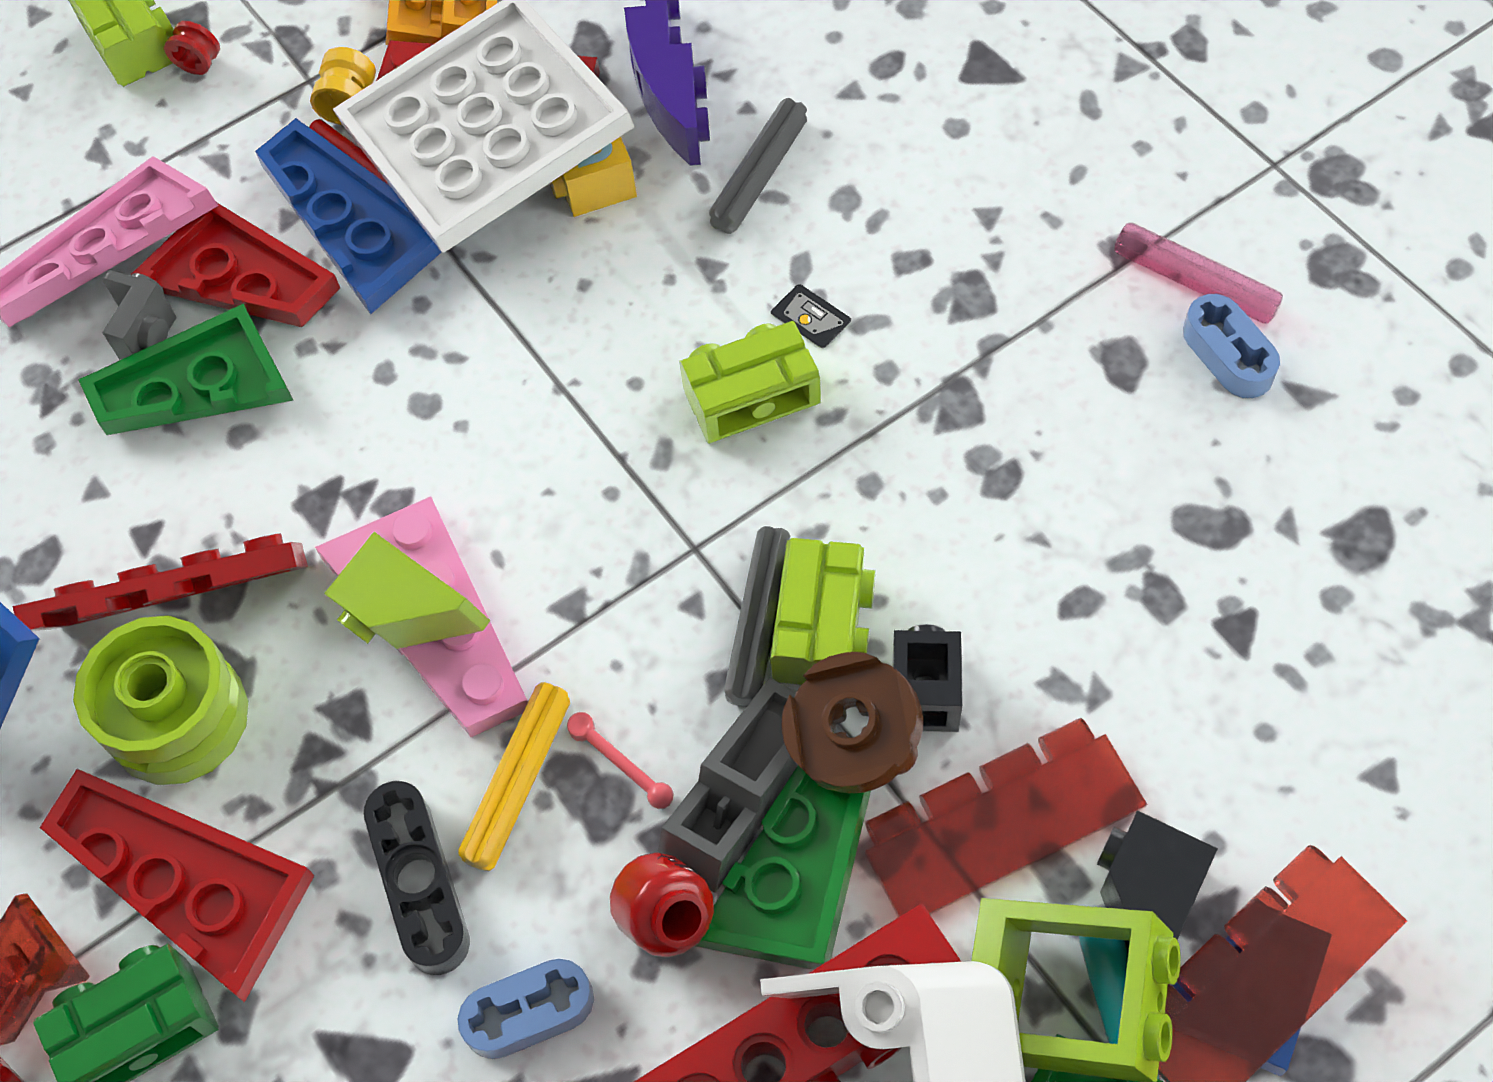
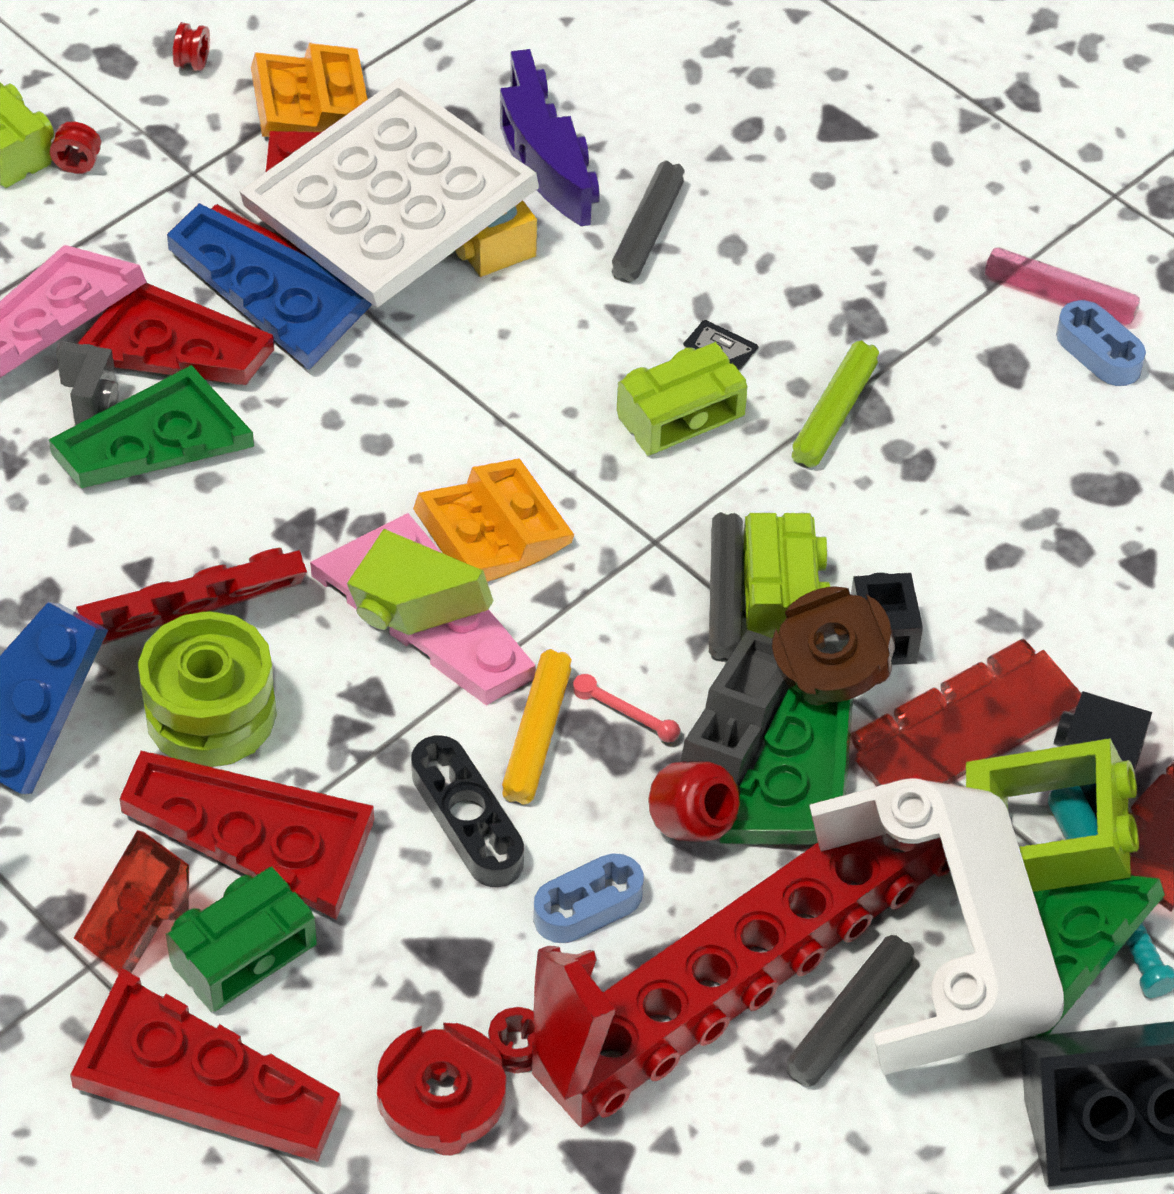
camera: 15 degrees left, 10 degrees down
(342, 75) = (234, 165): yellow wheel -> none
(522, 513) = (494, 520): none -> light orange slope
(920, 399) = (835, 404): none -> lime axle

